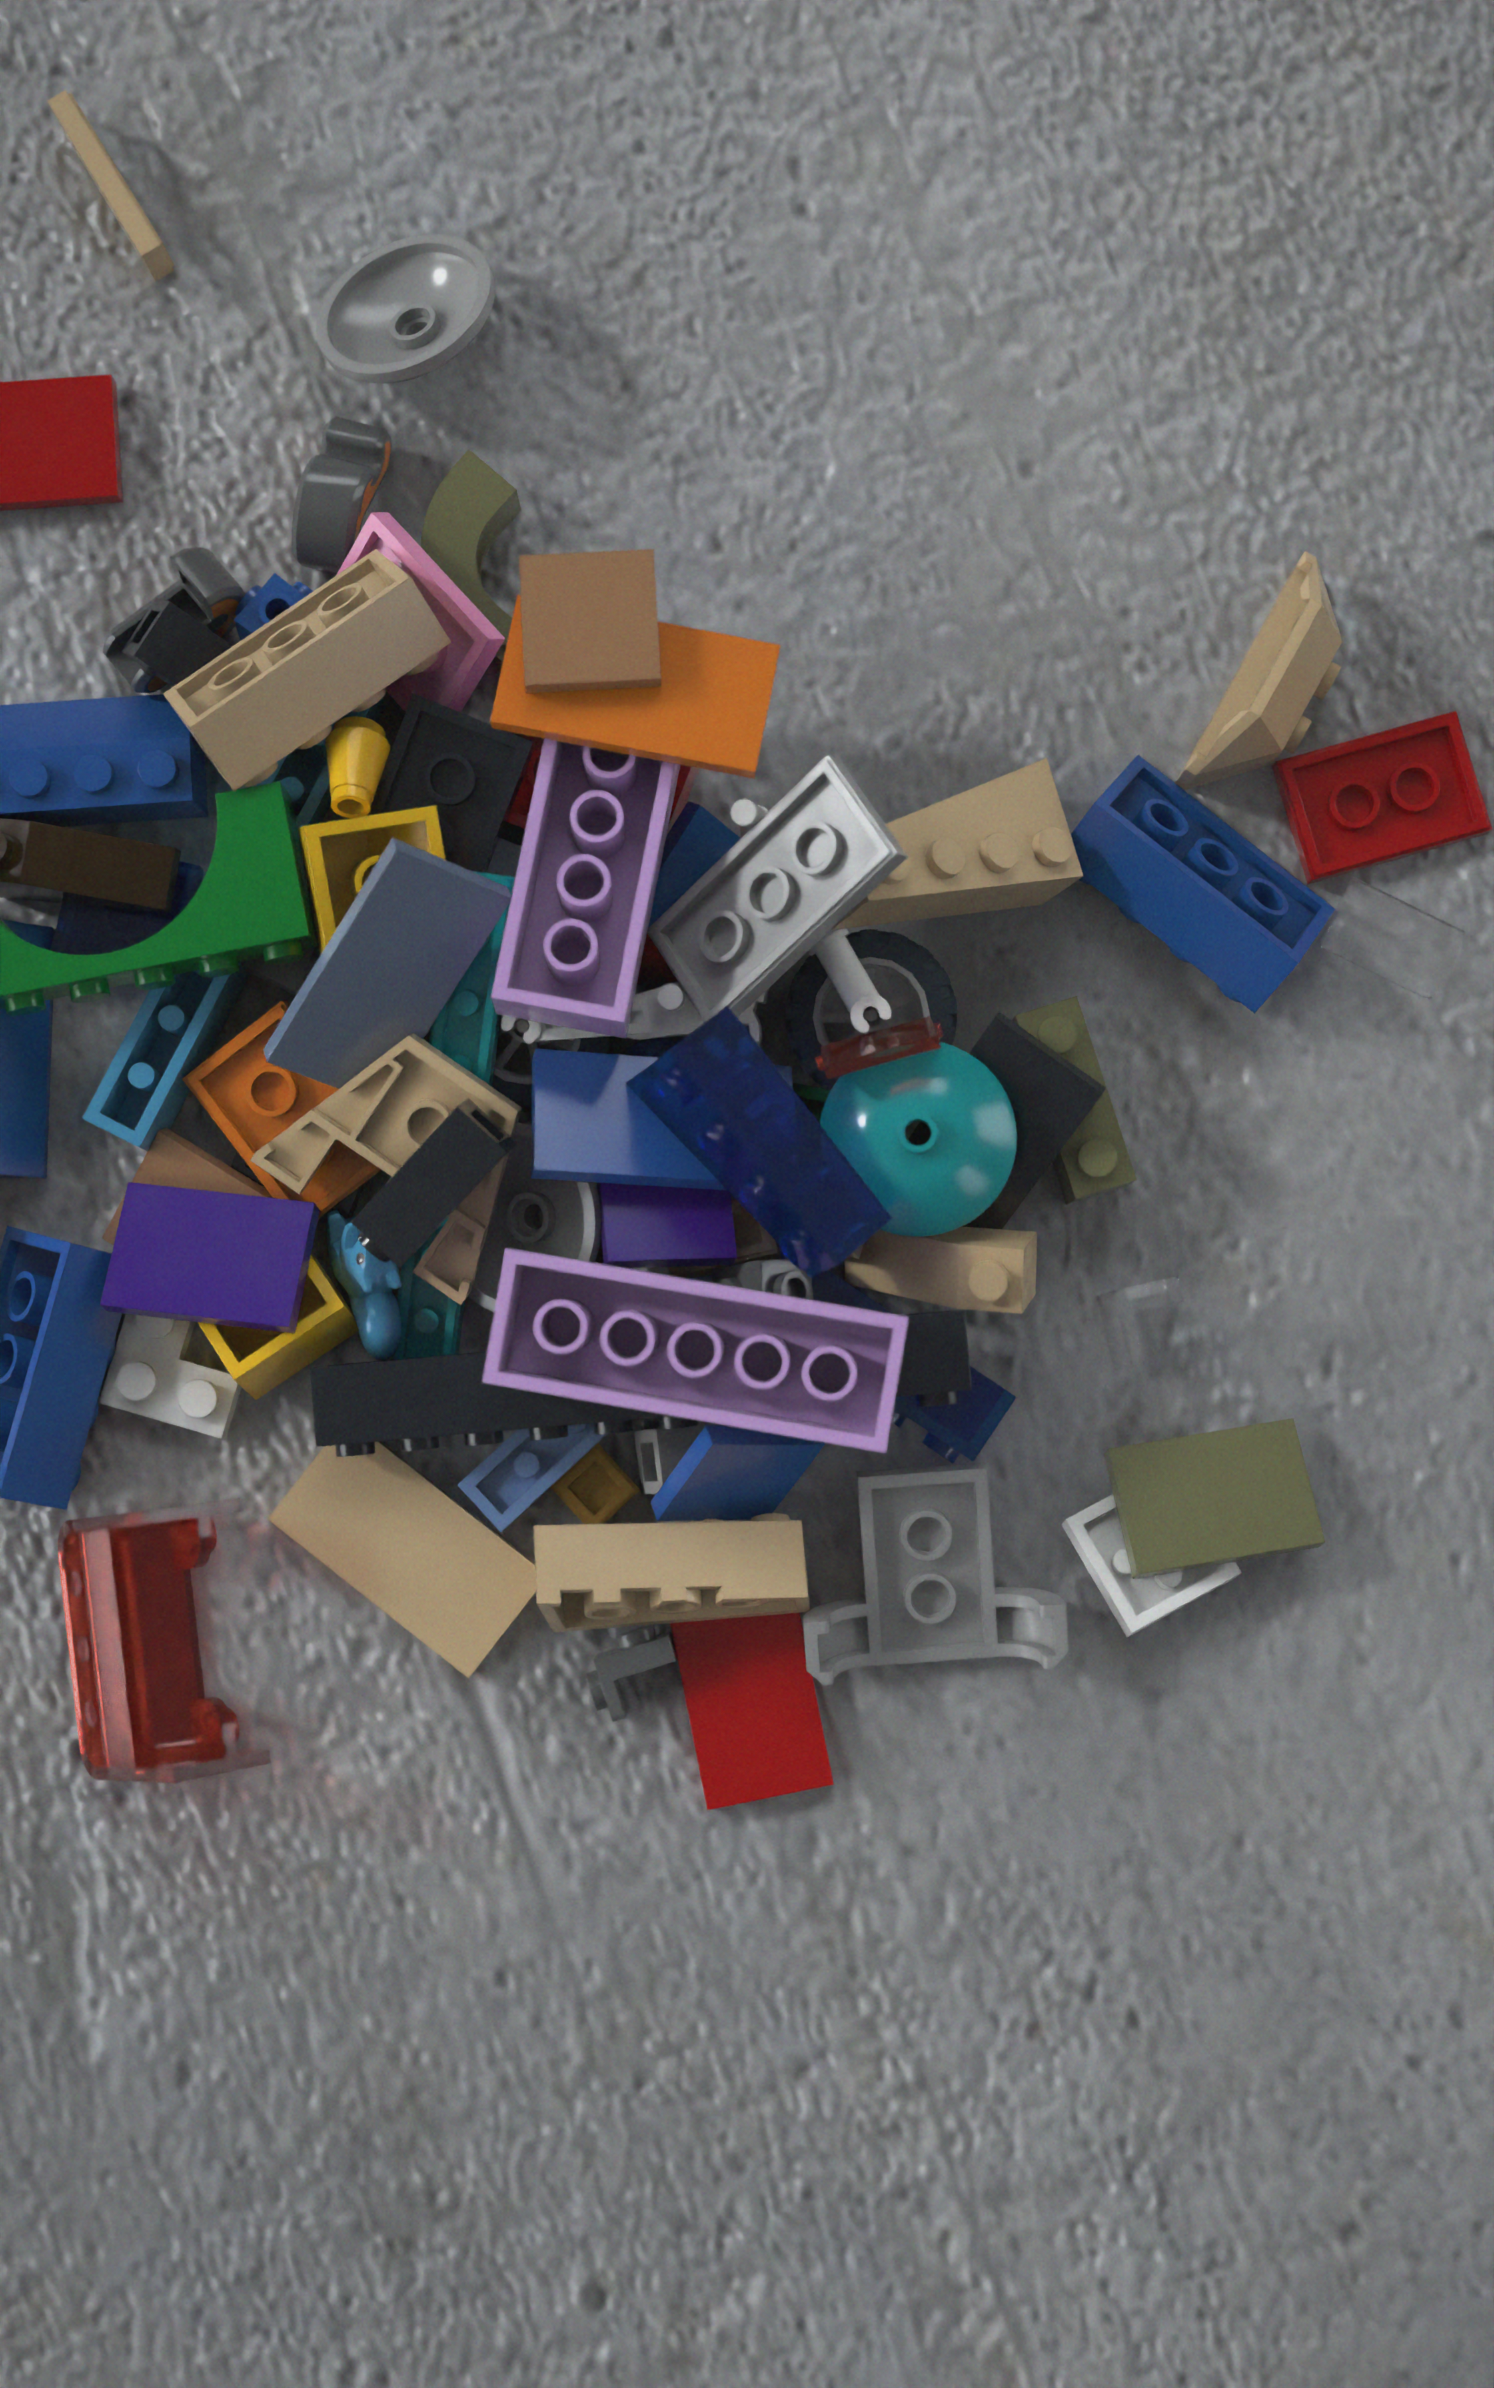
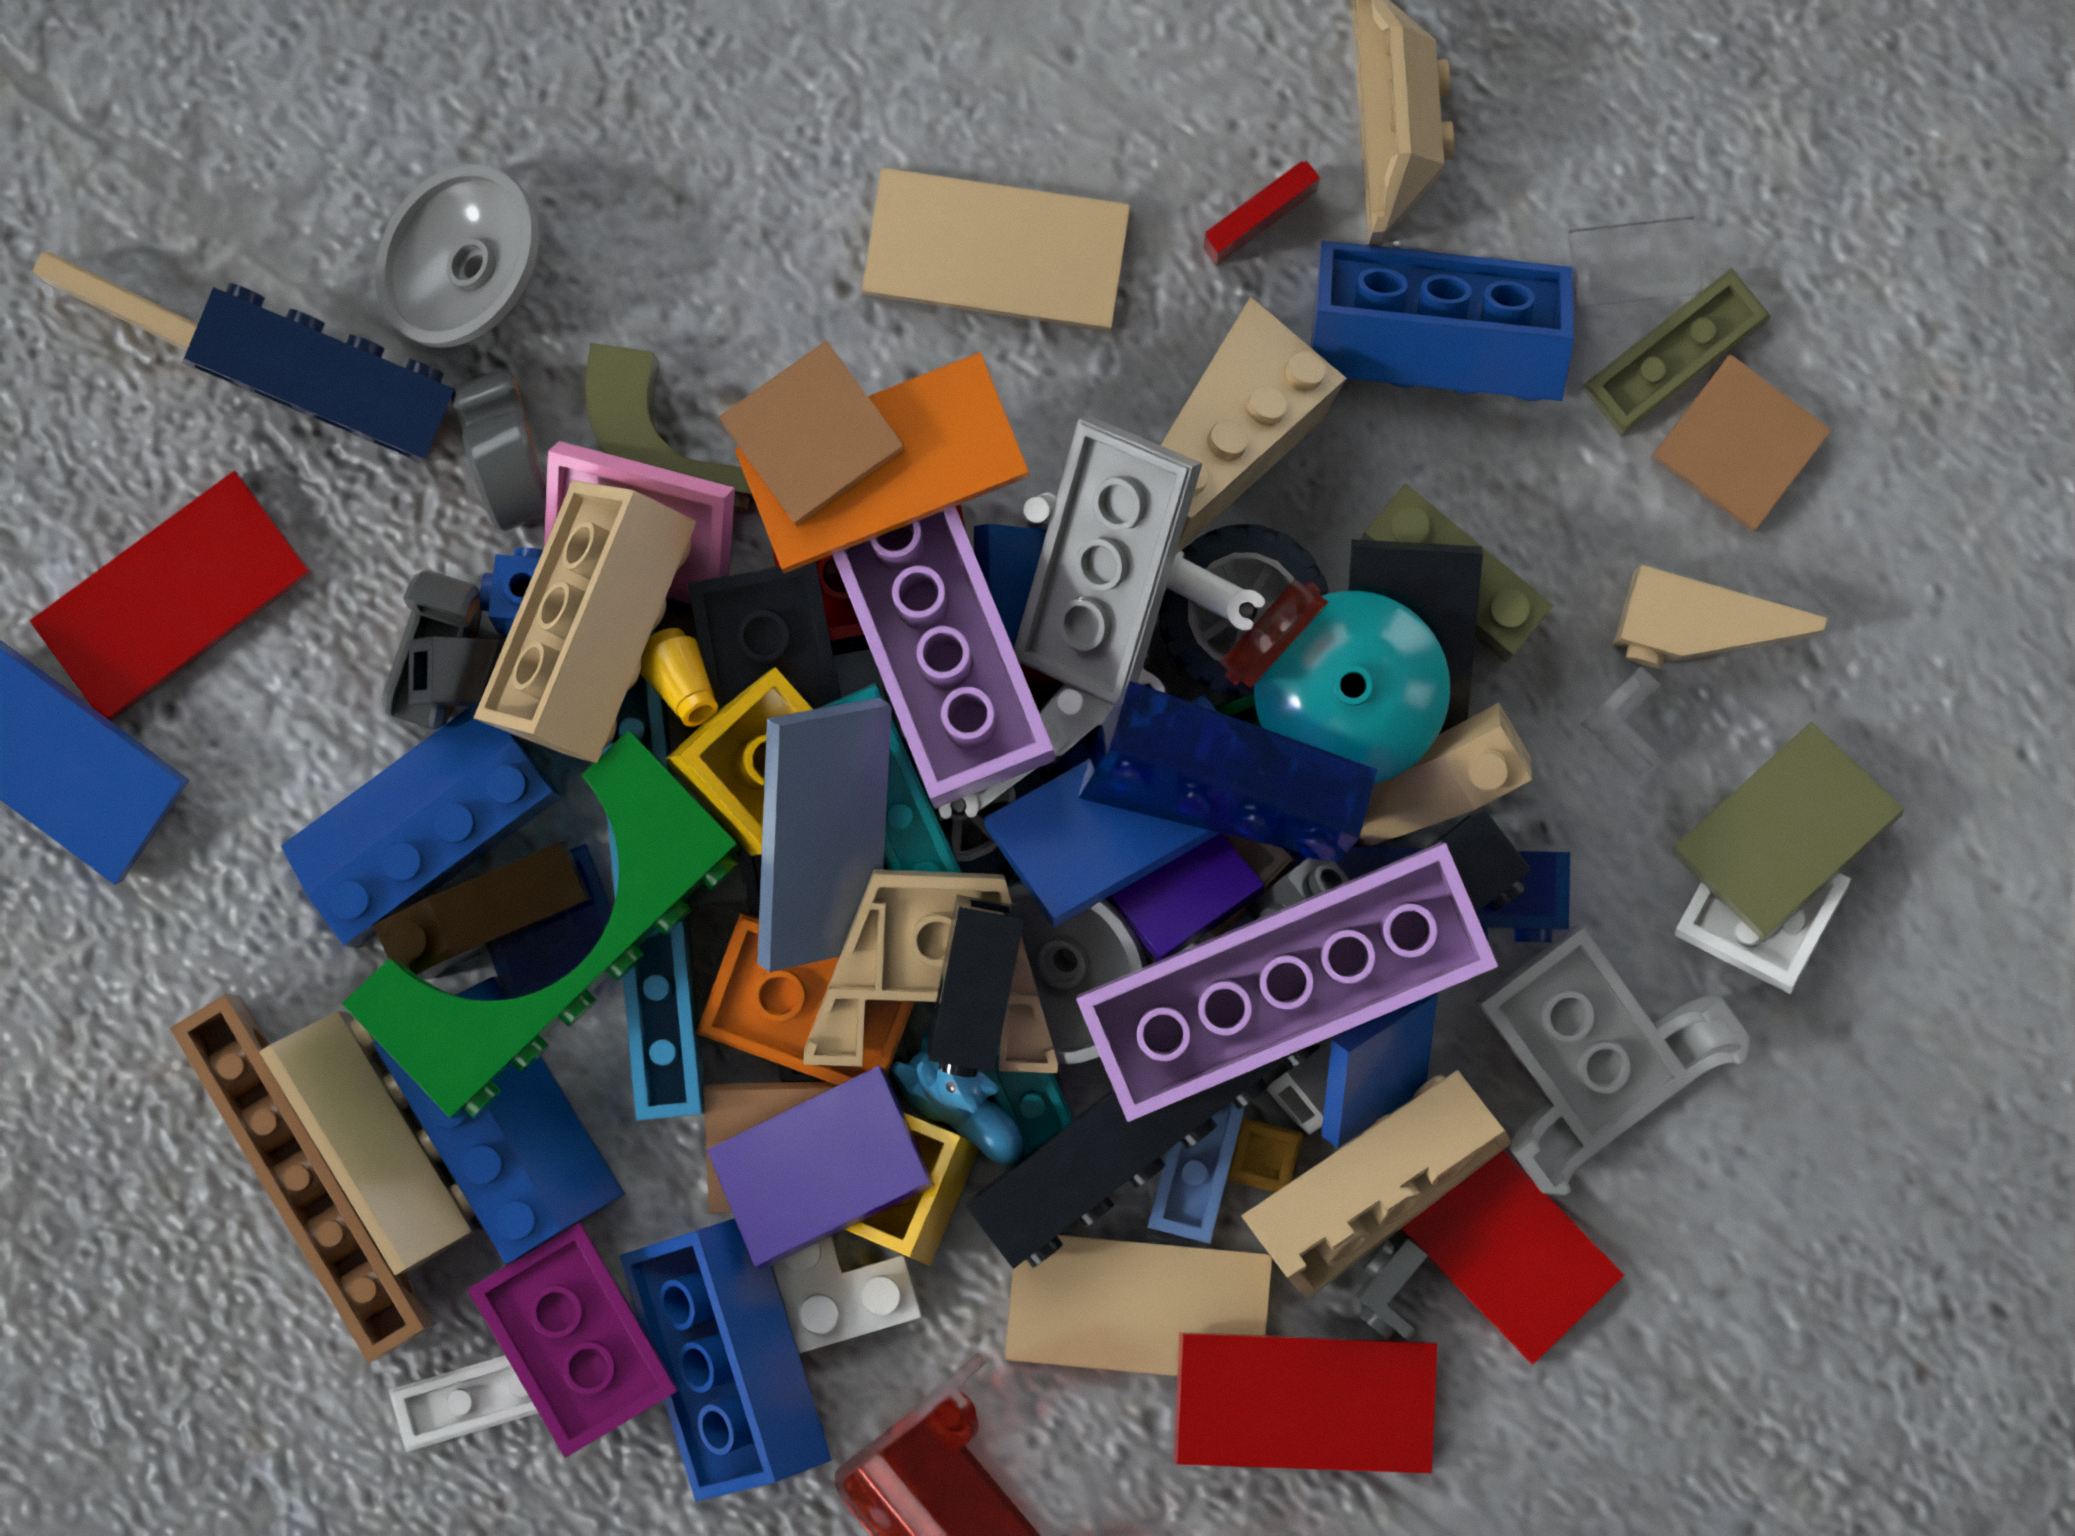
camera: 25 degrees left, 0 degrees up
(224, 330) = (319, 374): none -> dark blue brick
(494, 1718) = (1305, 1402): none -> red tile
(860, 590) = (996, 249): none -> tan tile
(1102, 696) = (1260, 211): none -> red tile
(1246, 1267) = (1691, 619): none -> tan slope
(1377, 1035) = (1676, 352): none -> olive tile
(1381, 797) = (1551, 147): red tile -> none
(1383, 1146) = (1741, 443): none -> medium nougat tile

